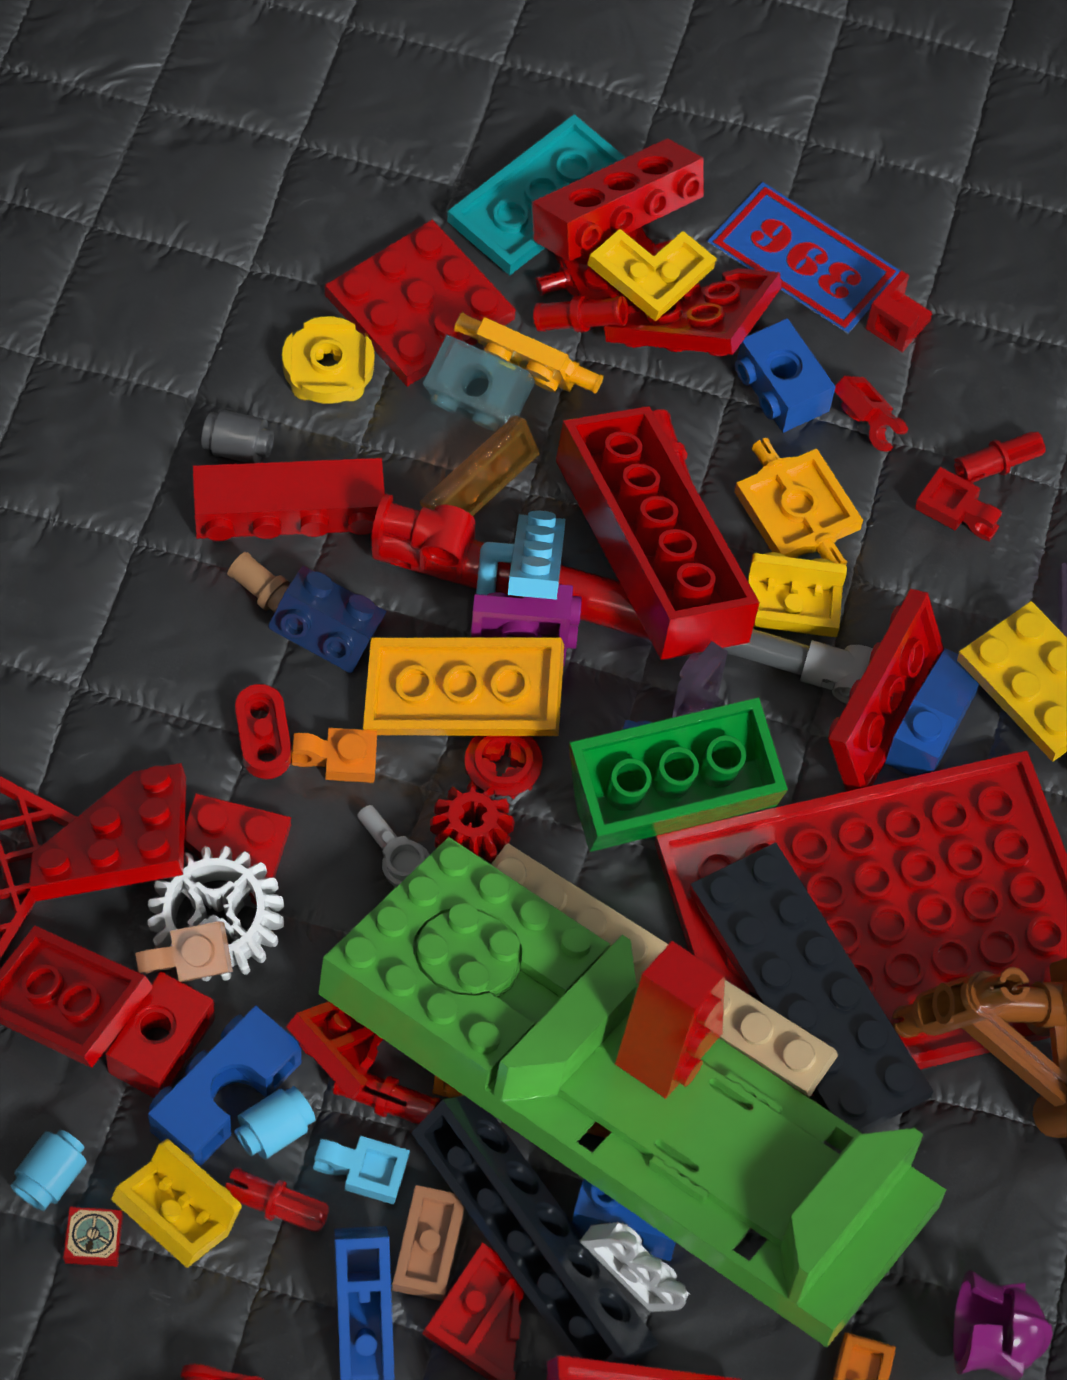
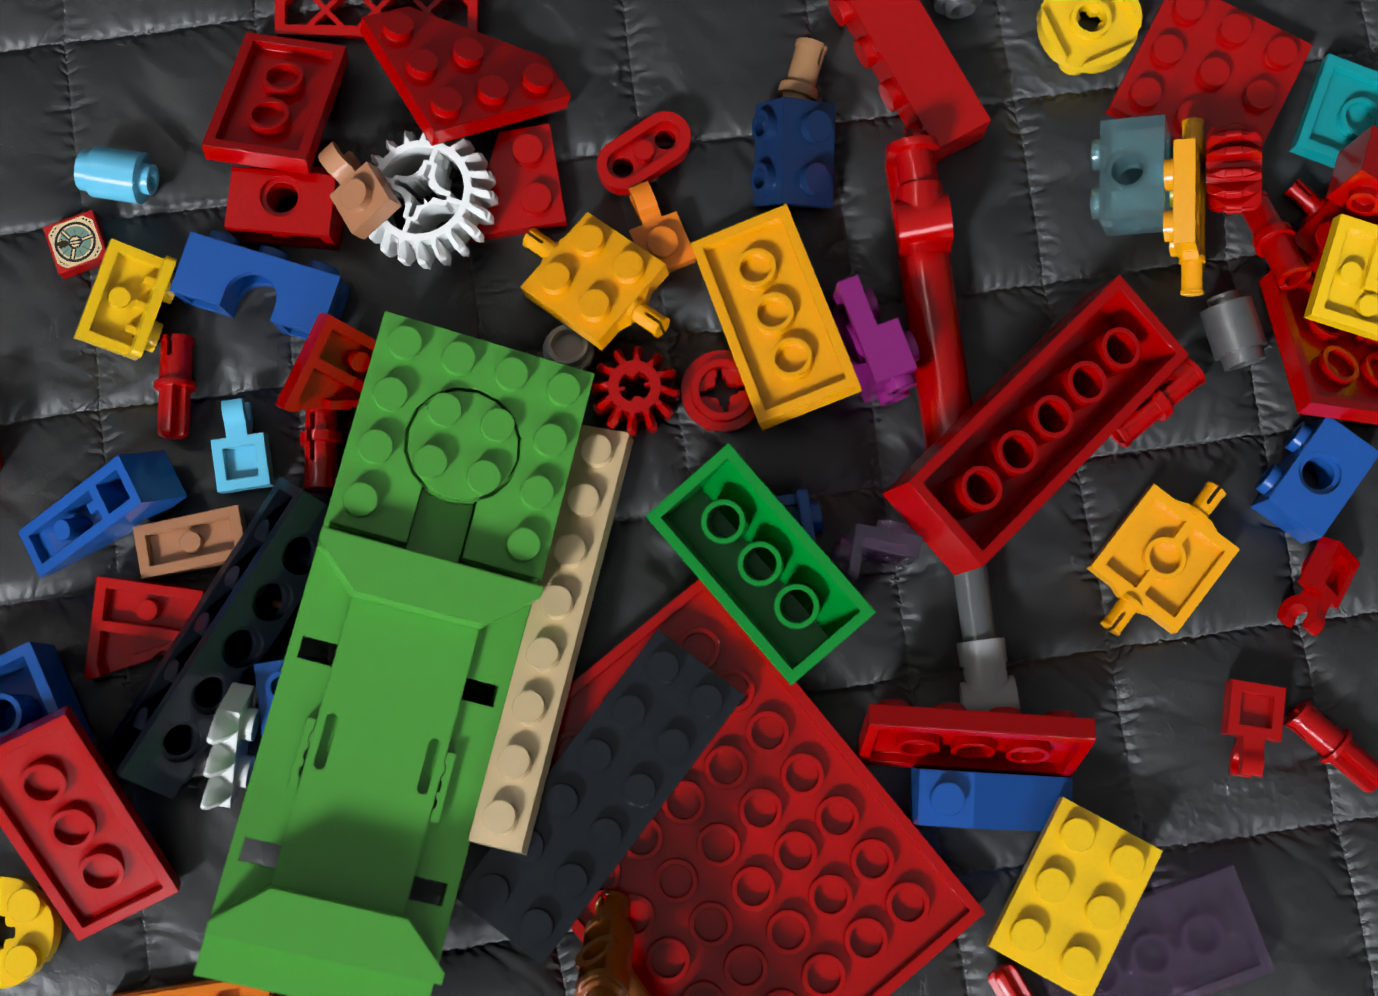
camera: 70 degrees right, 20 degrees up
(274, 1122) = (246, 349): medium azure brick -> none
(360, 812) = (595, 281): none -> light orange plate
(486, 469) = (1029, 227): clear orange tile -> none
(514, 306) = (1234, 168): none -> red gear
(533, 558) = (938, 316): medium azure plate -> none
(638, 375) = (1234, 330): none -> flat silver brick
(672, 1020) = (451, 680): red wedge -> none
(797, 593) = (1050, 597): yellow bracket -> none

